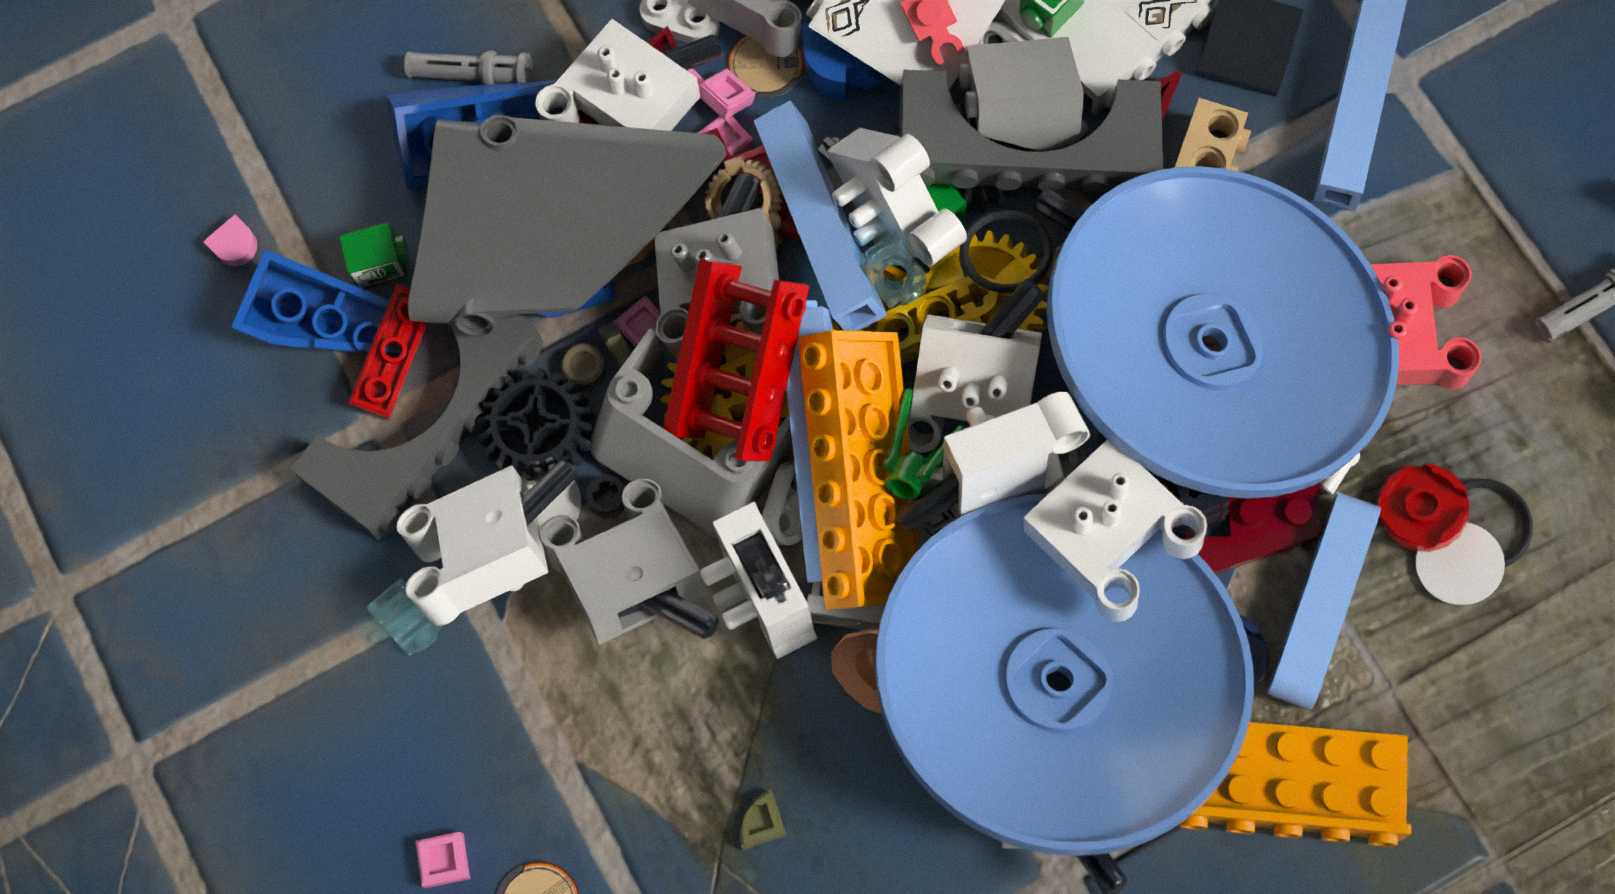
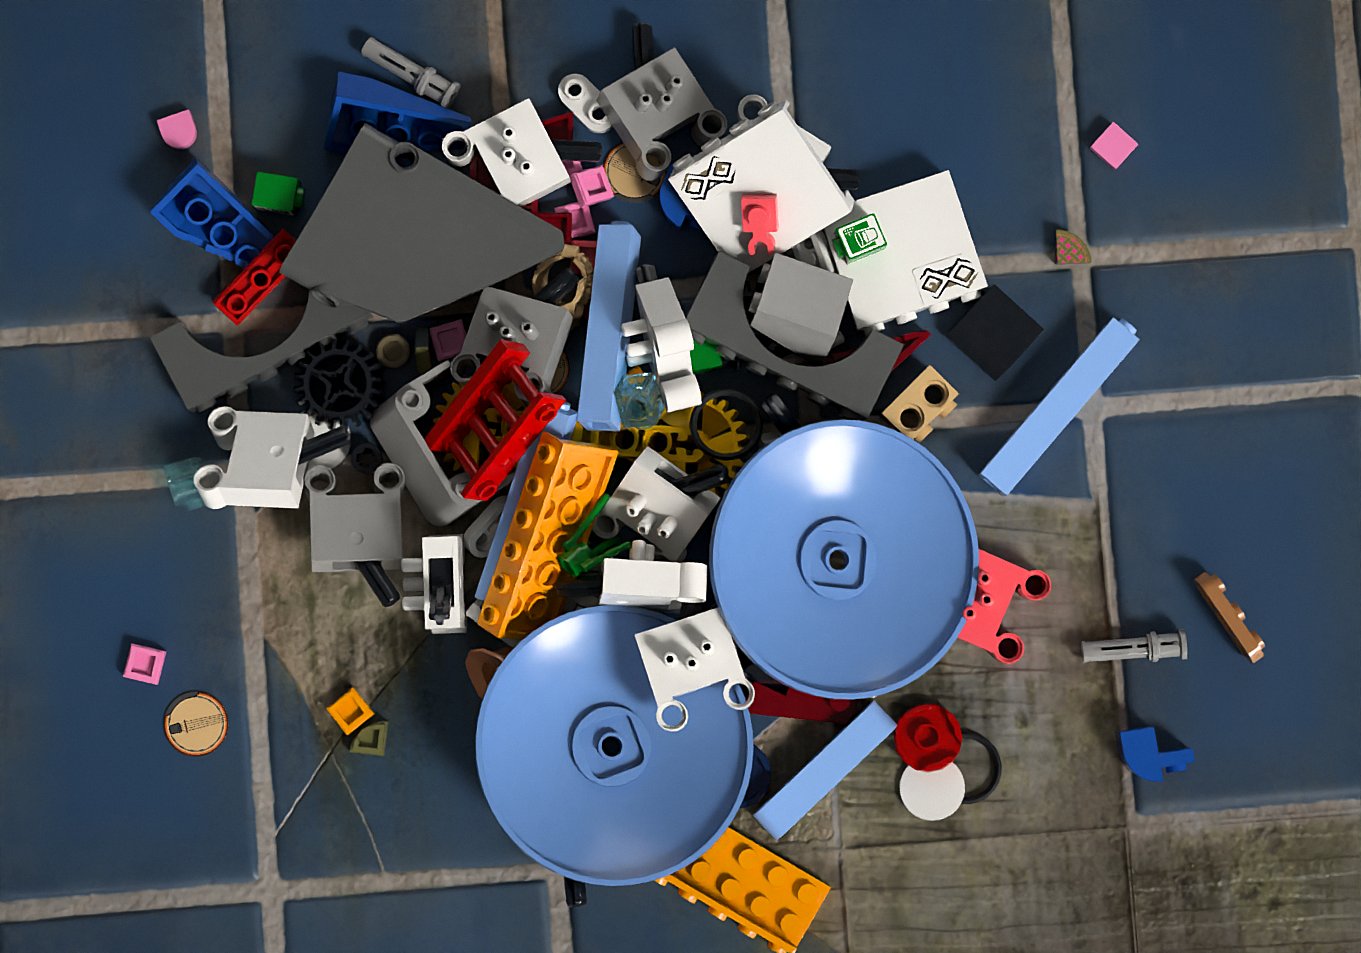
camera: 15 degrees right, 15 degrees up
(720, 799) = (350, 711): none -> light orange tile

